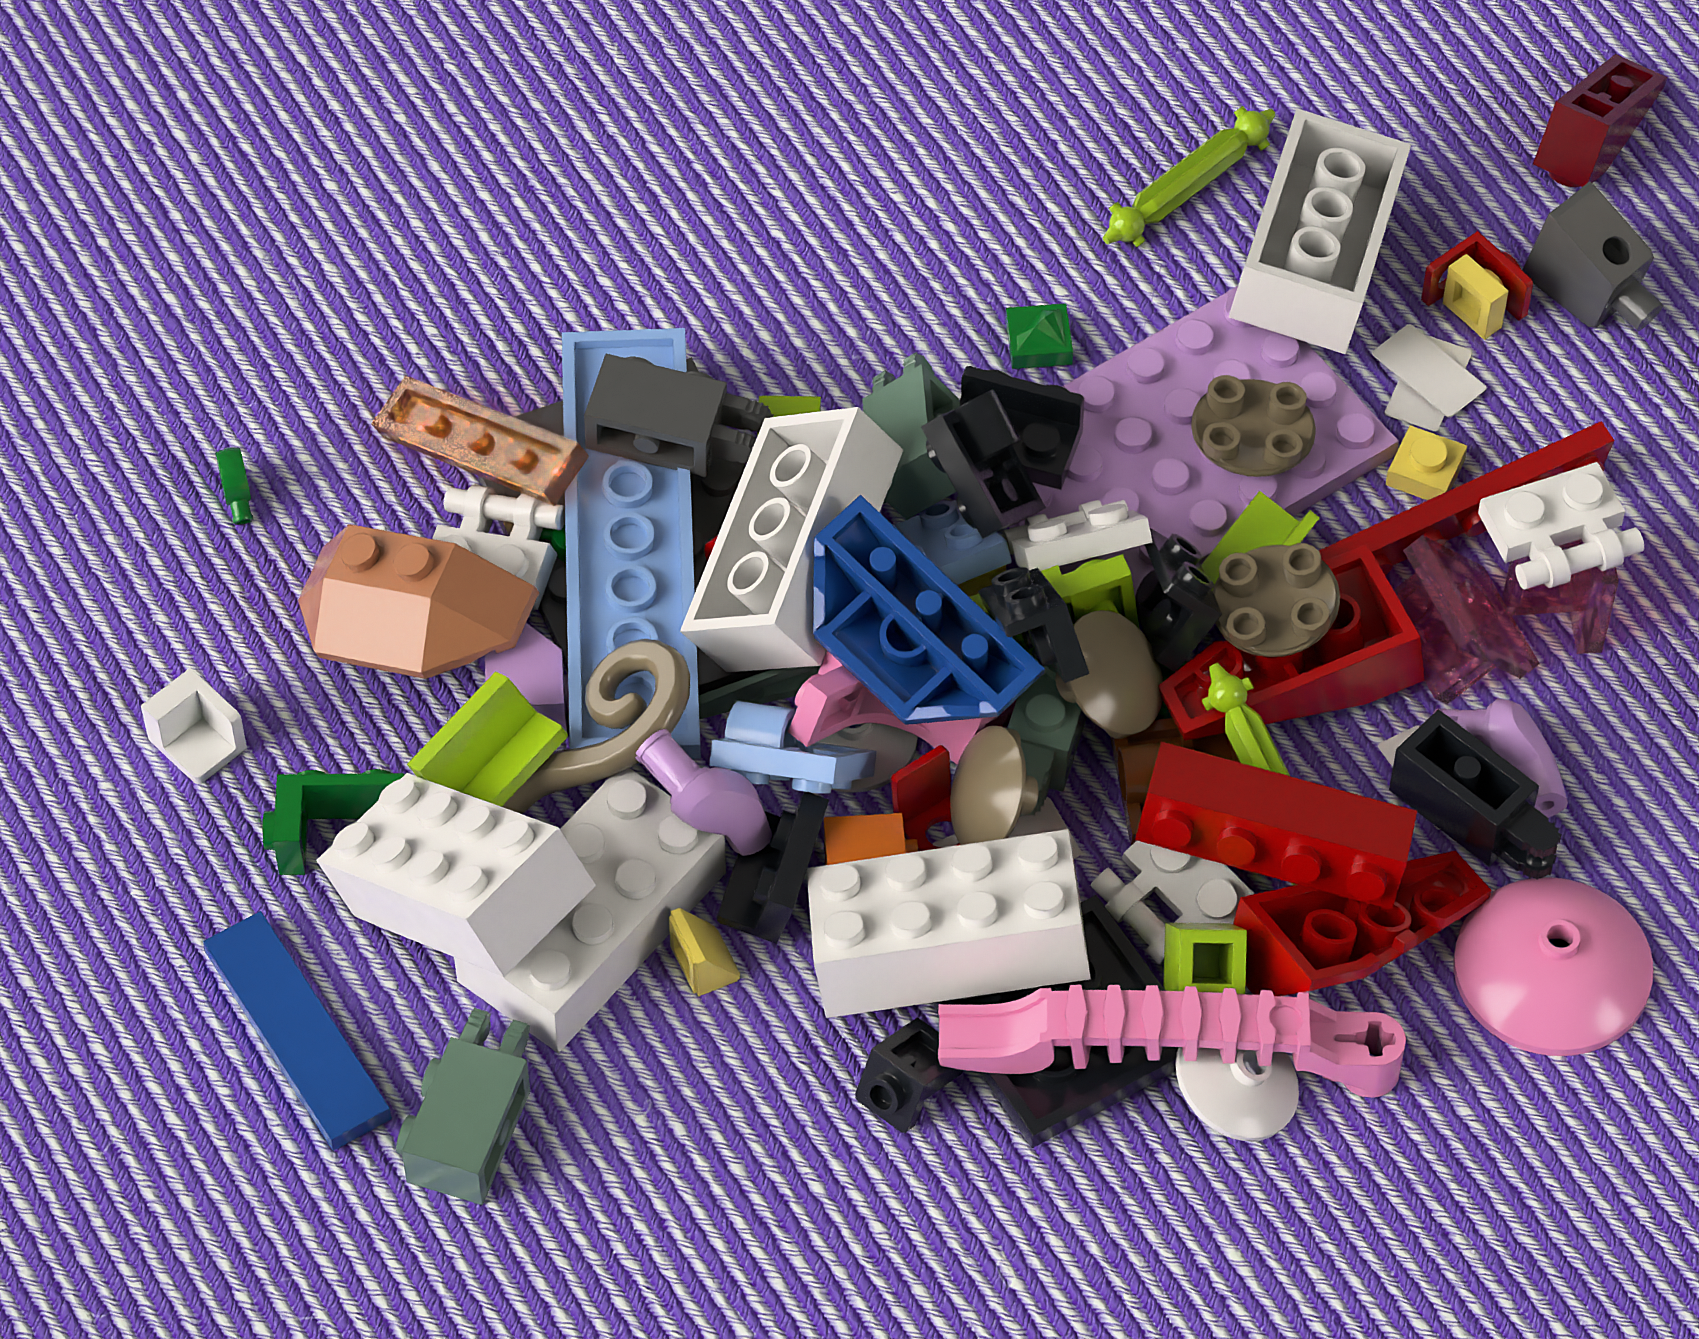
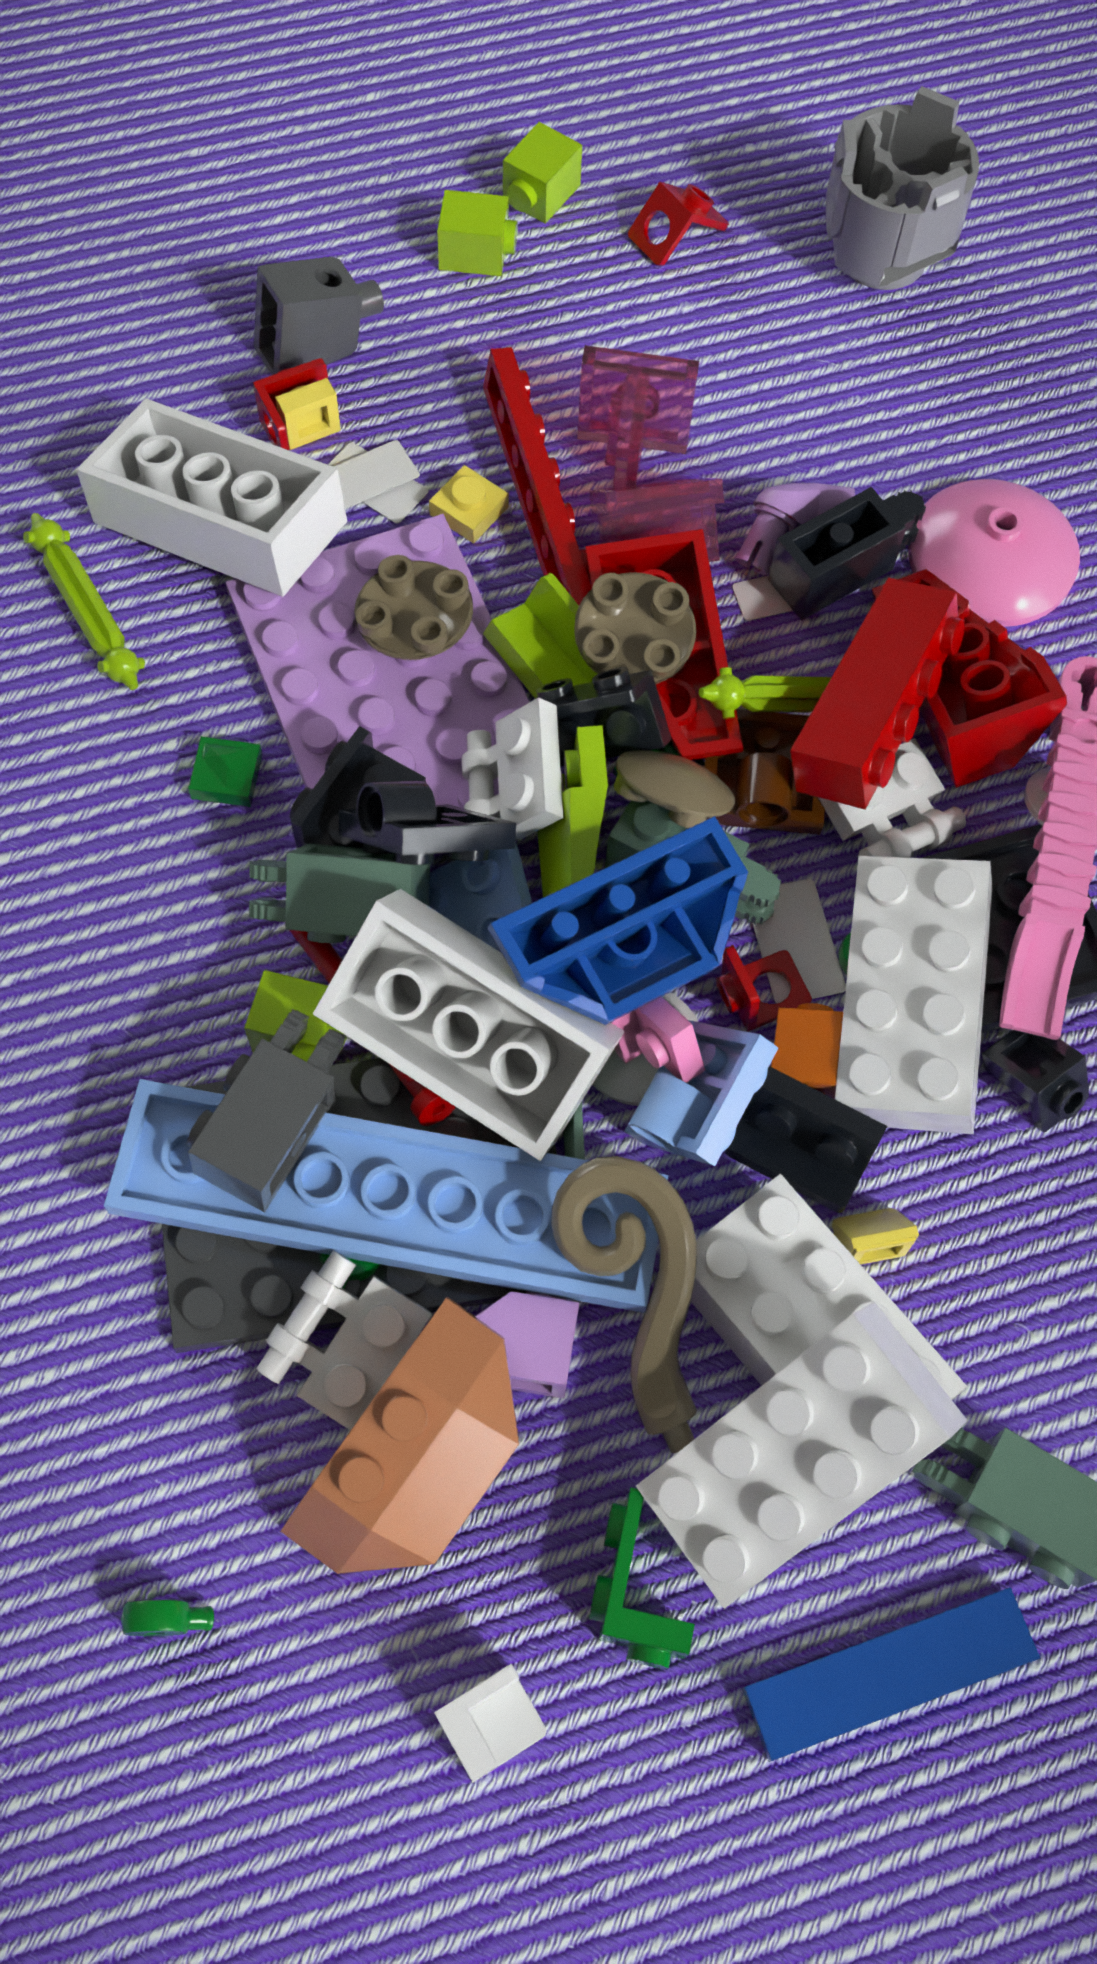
camera: 80 degrees left, 10 degrees up
(480, 440) = (212, 1325): clear orange plate -> none
(489, 744) = (637, 1389): lime panel -> none
(706, 797) = (757, 1182): lavender arm -> none
(991, 787) = (783, 923): dark tan dish -> none
(1030, 606) = (655, 808): black bracket -> none
(1205, 957) = (994, 787): lime brick -> none
(1555, 512) = (624, 384): white plate -> none
(1596, 120) = (150, 274): dark red slope -> none

